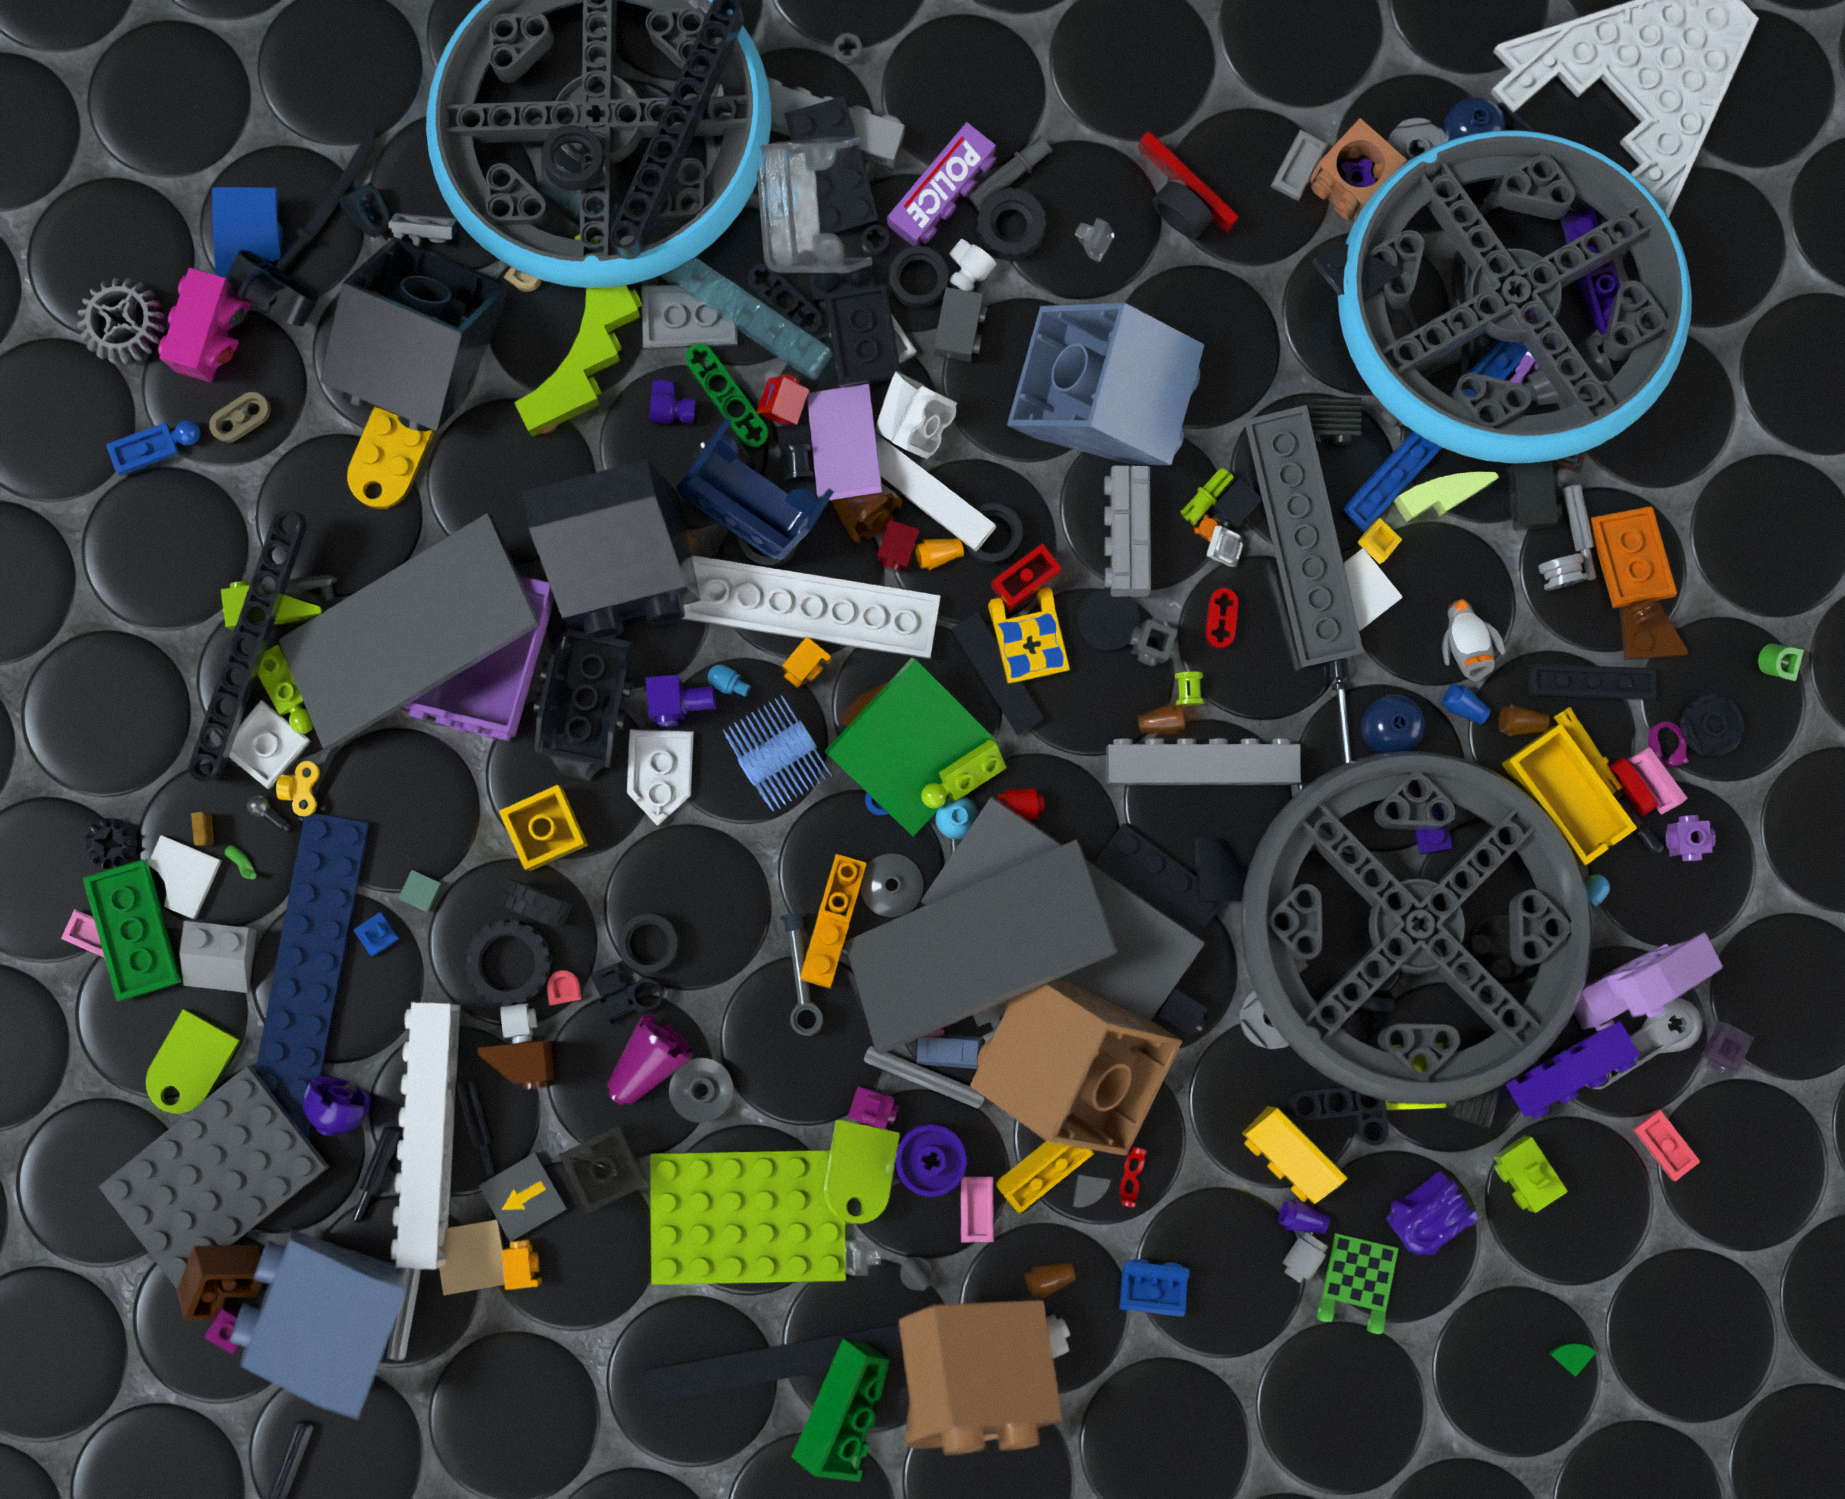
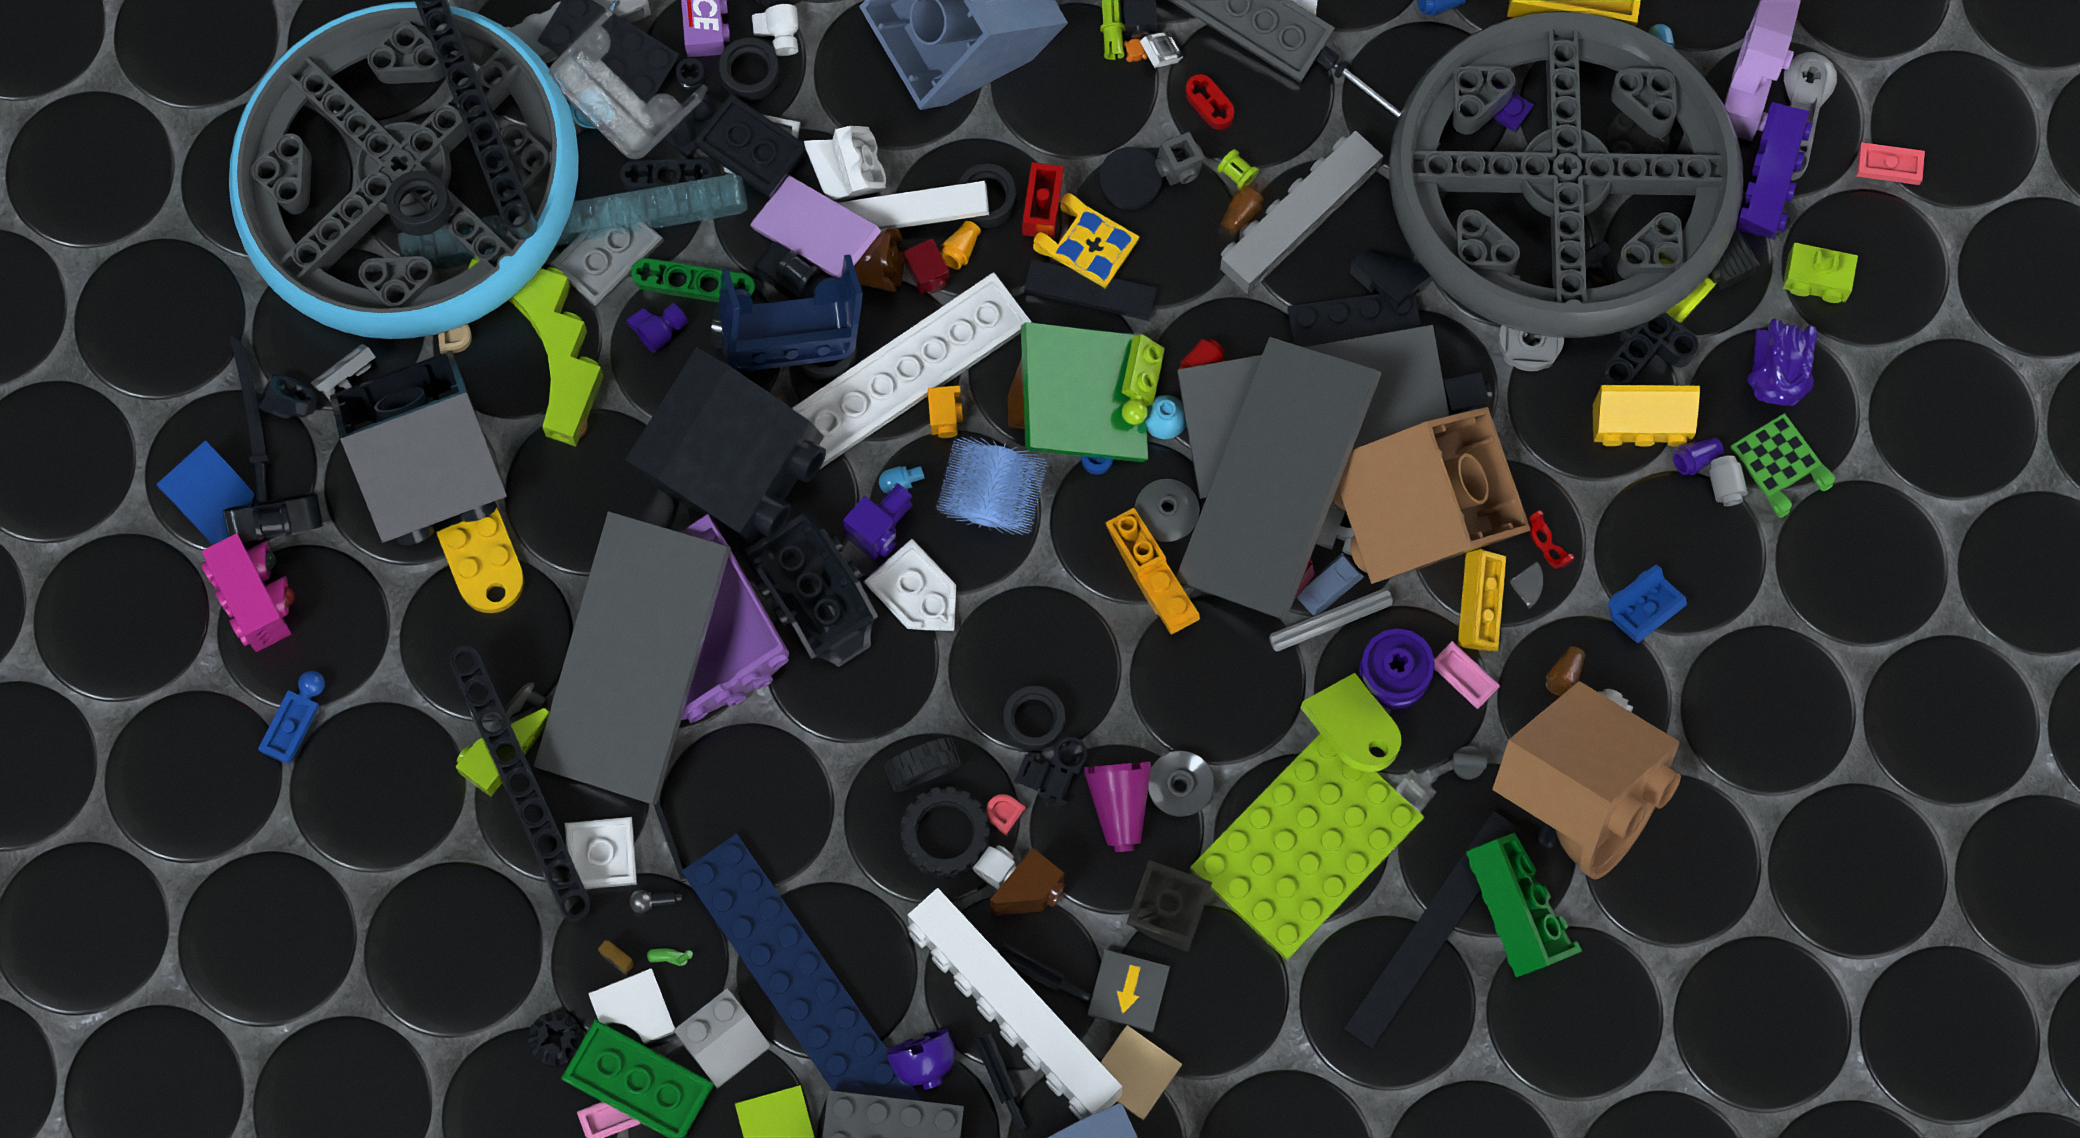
camera: 40 degrees left, 10 degrees down
(116, 332) = (164, 653): light grey gear -> none
(239, 414) = (340, 636): dark tan plate -> none
(283, 690) = (578, 798): lime plate -> none
(299, 788) = (659, 857): yellow piece -> none
(376, 934) = (825, 909): blue tile -> none
(420, 891) = (825, 846): sand green tile -> none
(520, 1265) = (1178, 1039): light orange brick -> none
(543, 828) = (873, 707): yellow brick -> none
(783, 400) = (739, 243): brick -> none
(794, 925) = (1127, 604): dark grey piece -> none
(873, 1108) = (1316, 674): magenta brick -> none
(958, 324) = (813, 73): dark grey brick -> none
(1129, 531) = (1083, 100): light grey brick -> none
(1380, 730) = (1404, 59): dark blue cylinder -> none
(1573, 1356) = (1980, 369): green tile -> none
(1737, 1045) = (1864, 49): clear purple brick -> none

